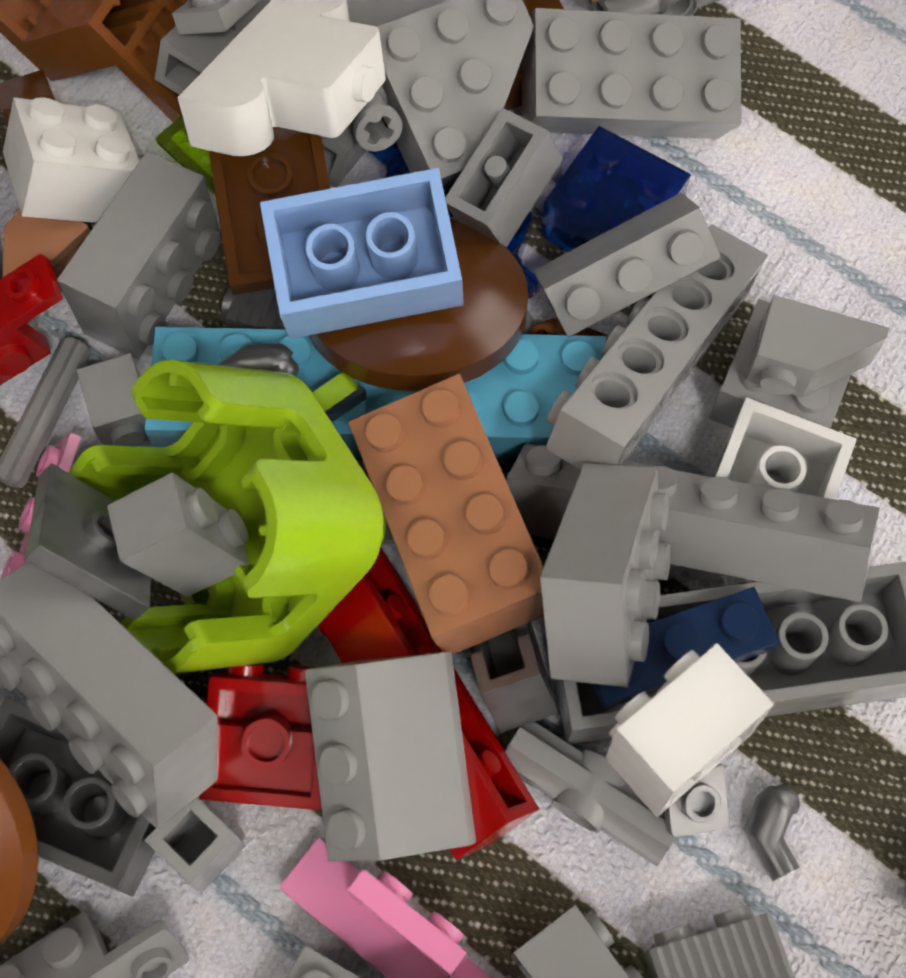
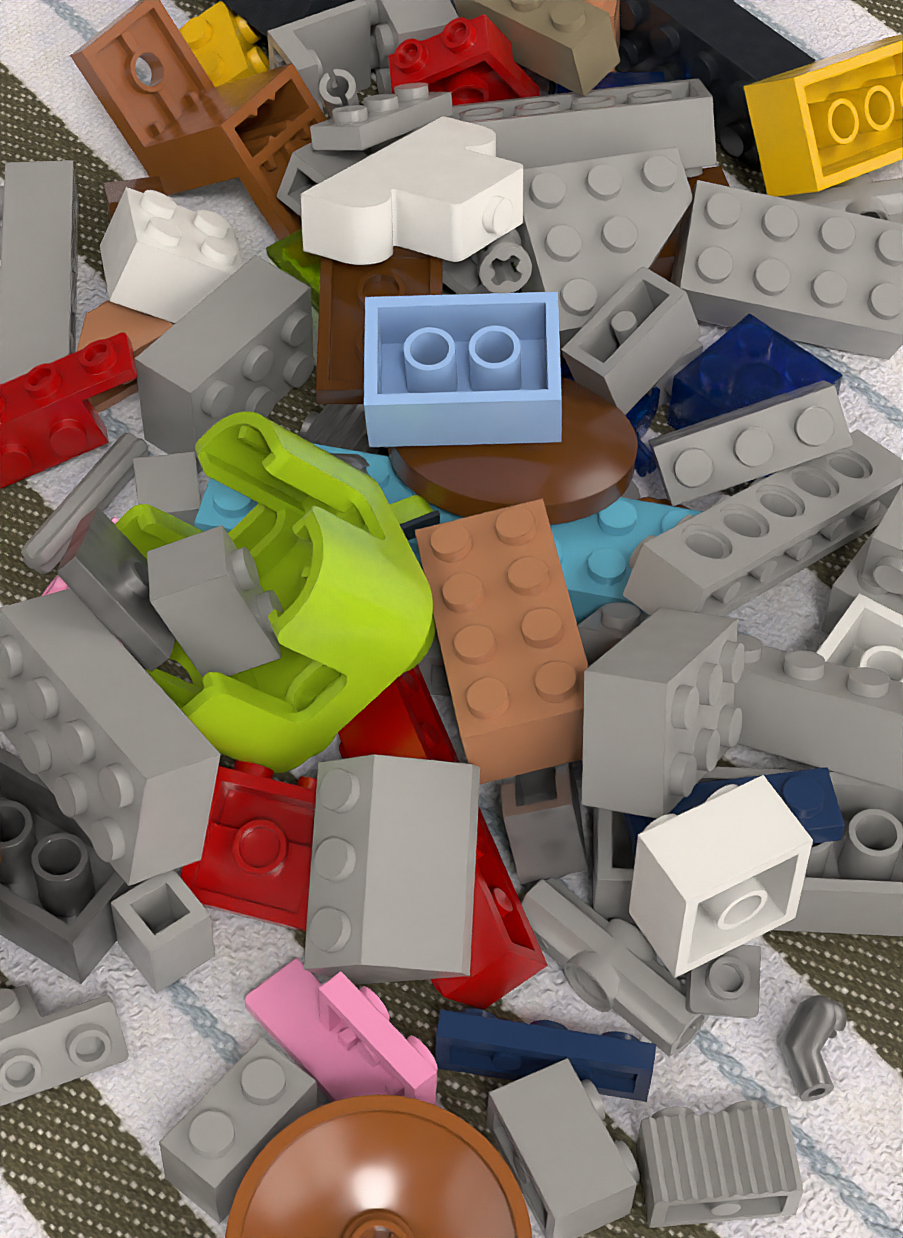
camera: 10 degrees right, 15 degrees down
(552, 889) = (510, 1050): none -> dark blue plate

